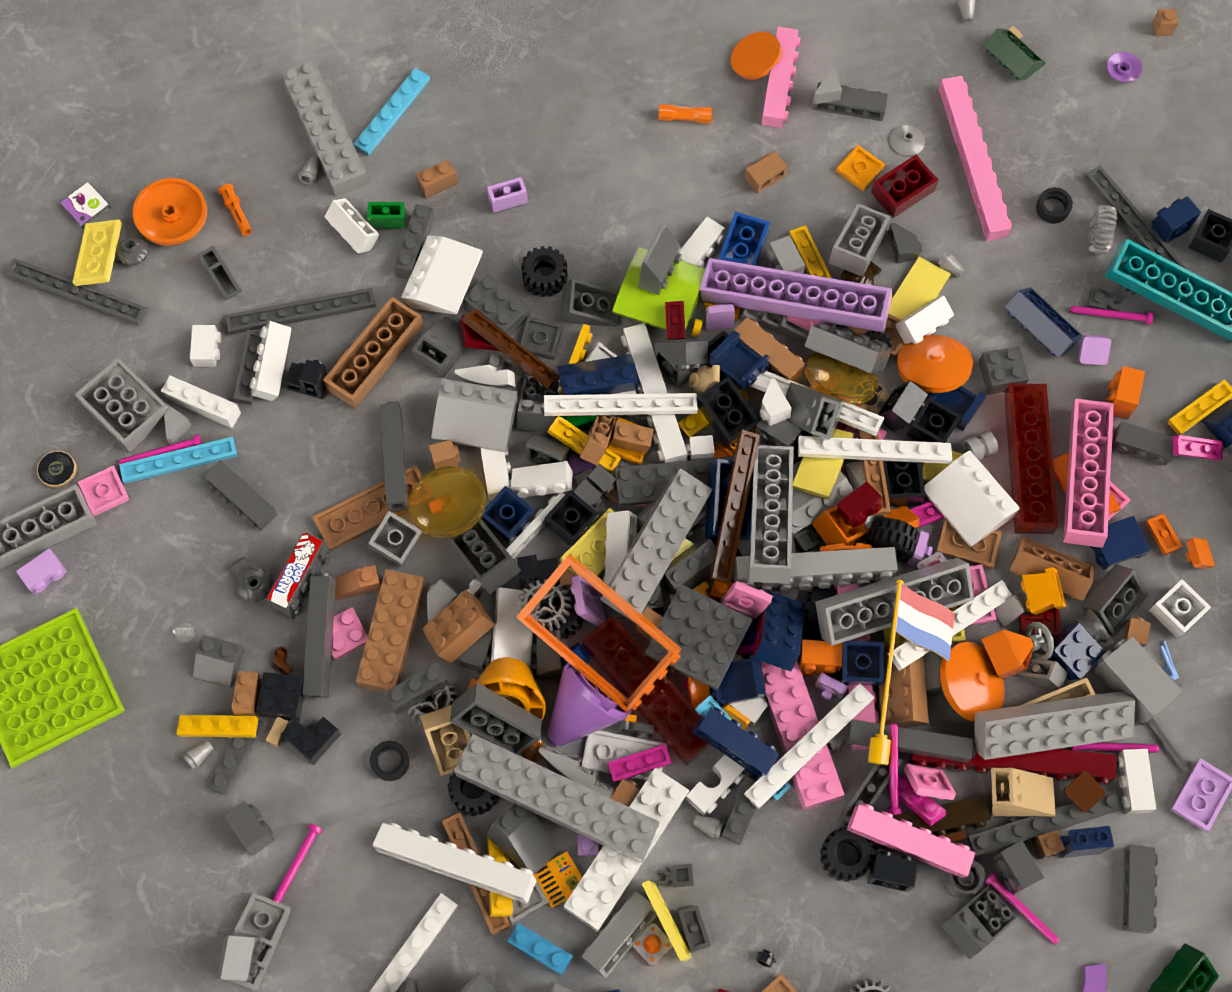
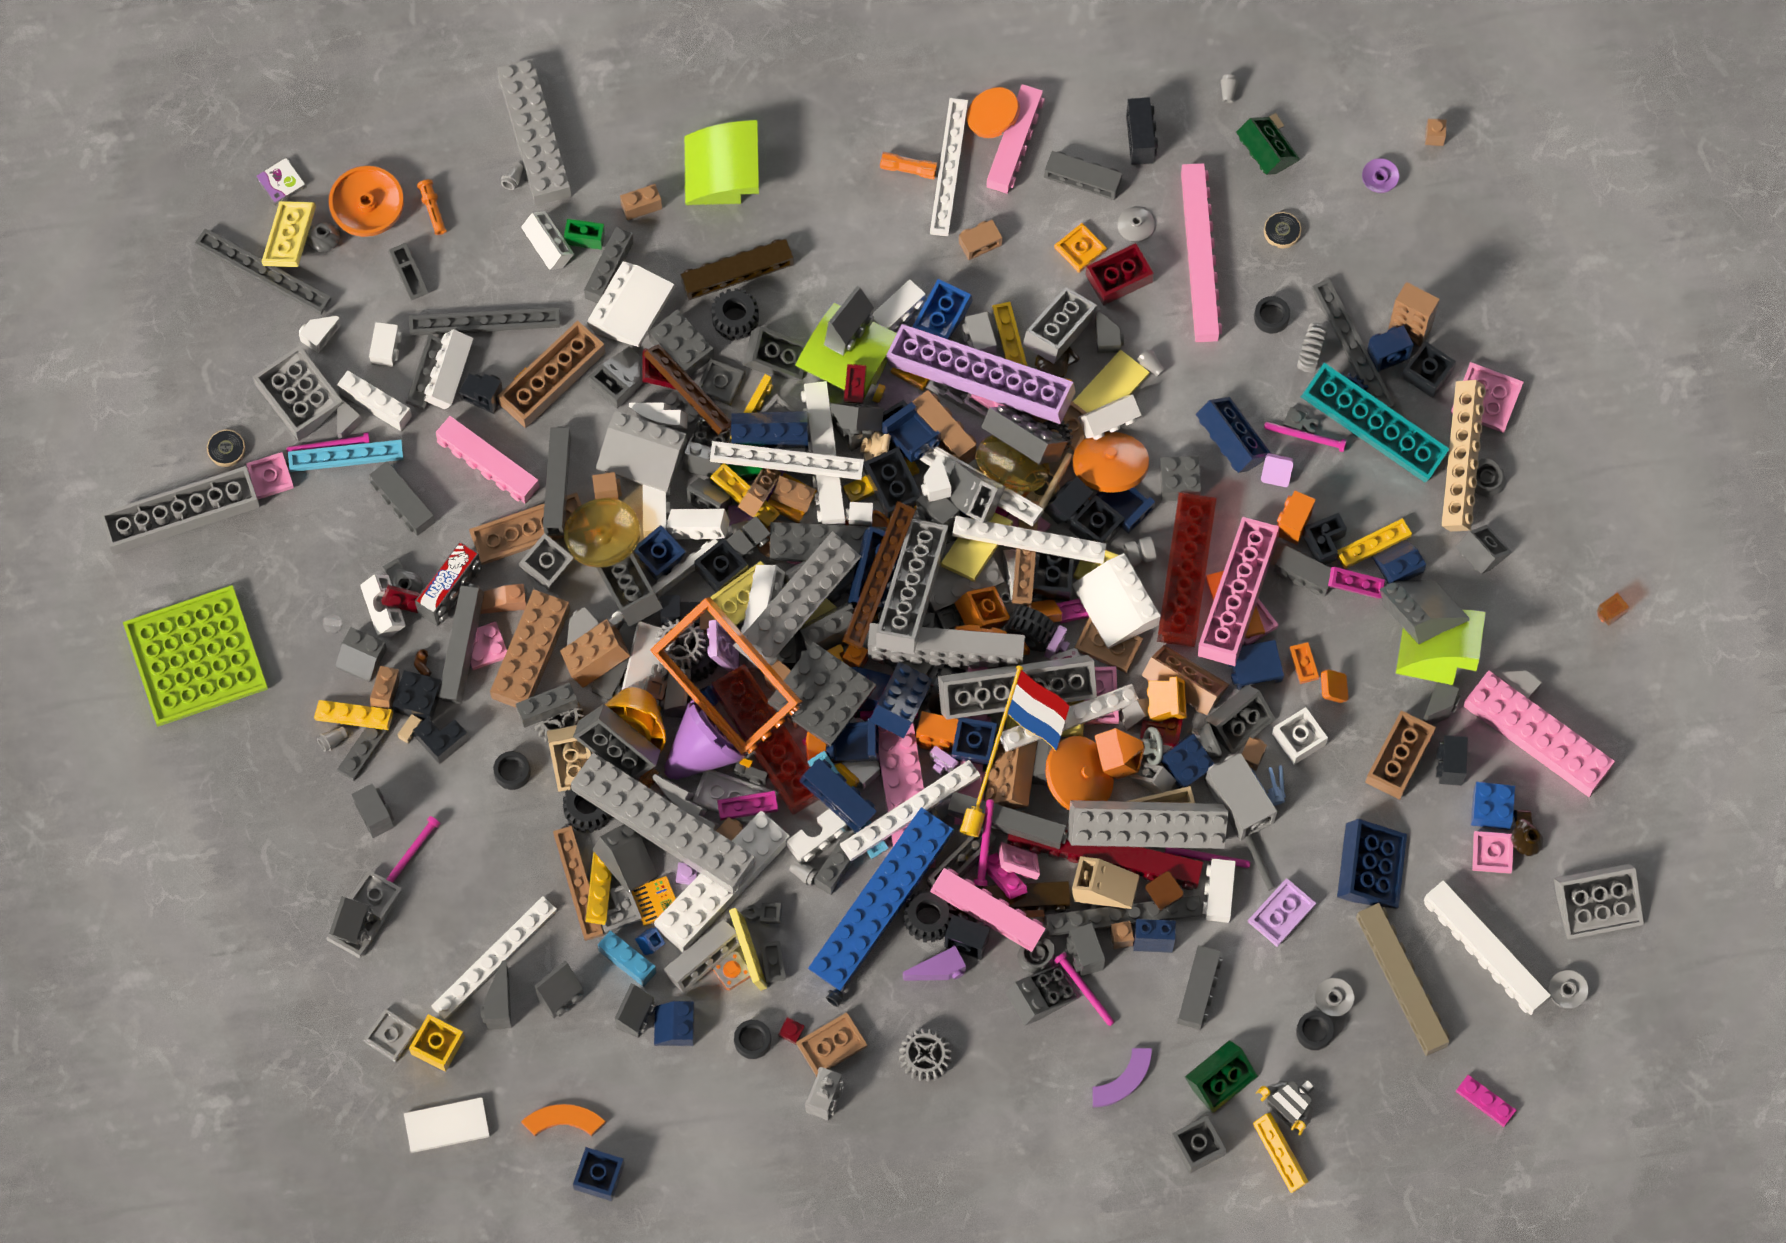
camera: 10 degrees right, 0 degrees up
(42, 571) = (202, 546): lavender brick -> none
(138, 342) = (319, 331): none -> white slope
(225, 596) = (385, 620): none -> white arch
(250, 597) = (400, 598): none -> dark red plate
(321, 445) = (487, 460): none -> bright pink brick
(391, 111) = (605, 122): medium azure plate -> none
(454, 862) = (559, 868): white brick -> none
(507, 194) = (710, 229): lavender brick -> none
(509, 133) = (721, 163): none -> lime slope
(524, 649) = (655, 684): none -> dark grey plate
(538, 229) = (737, 269): none -> dark brown brick
(561, 925) = (650, 941): none -> blue slope
(719, 316) = (904, 385): lavender piece -> none
(723, 111) = (948, 167): none -> white plate
(746, 599) = (874, 666): bright pink plate -> none
(797, 847) = (881, 899): none -> blue brick
(829, 89) = (1059, 161): light grey slope -> none
(860, 505) = (1001, 591): dark red brick -> none
(871, 907) = (940, 967): none -> medium lavender slope
(885, 387) = (1055, 481): none -> tan bar
(897, 54) = (1141, 131): none -> black brick
(1044, 128) = (1282, 230): none -> black tile
(1153, 408) = (1321, 536): none -> black brick
(1197, 180) = (1415, 311): none -> medium nougat brick

